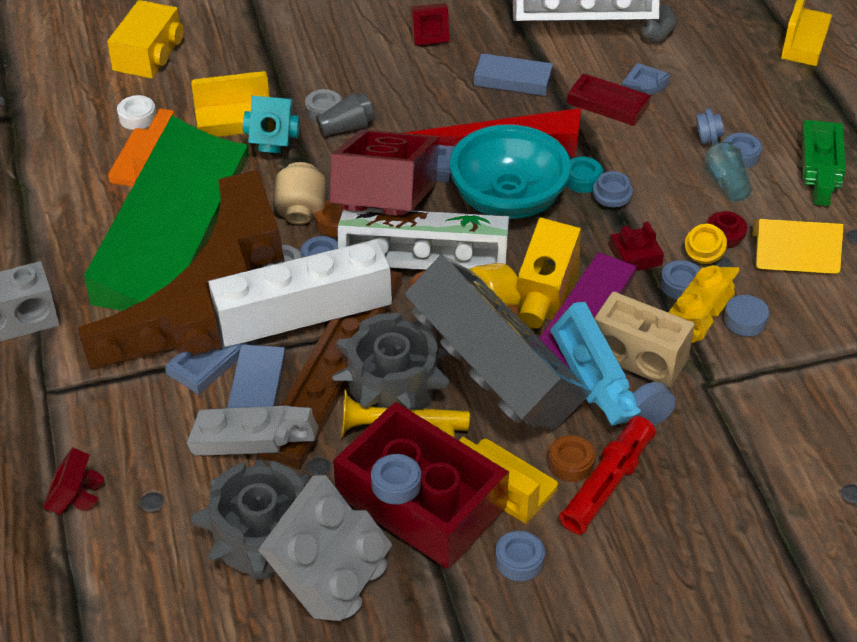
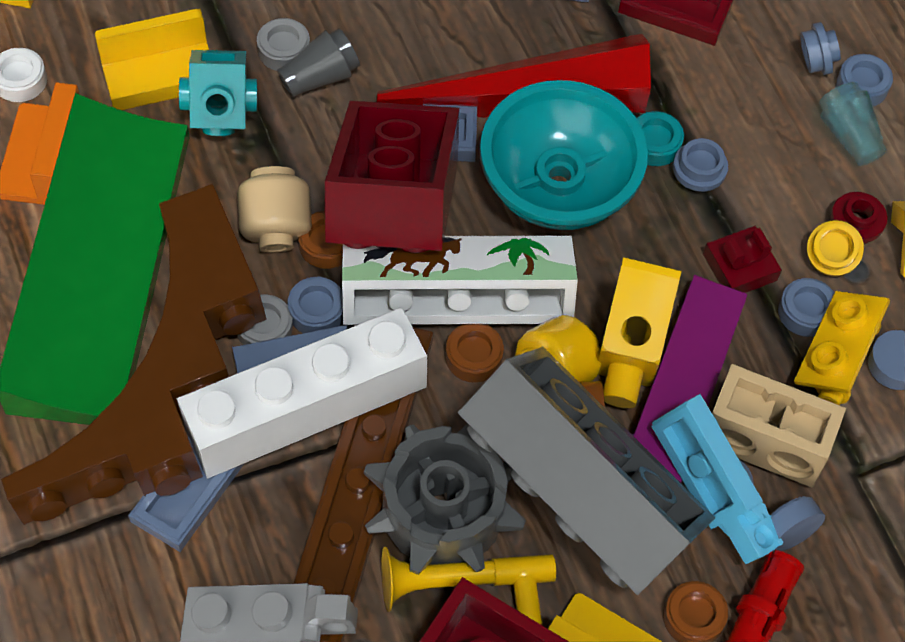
camera: 10 degrees left, 15 degrees up
(257, 376) = (259, 529): sand blue tile -> none

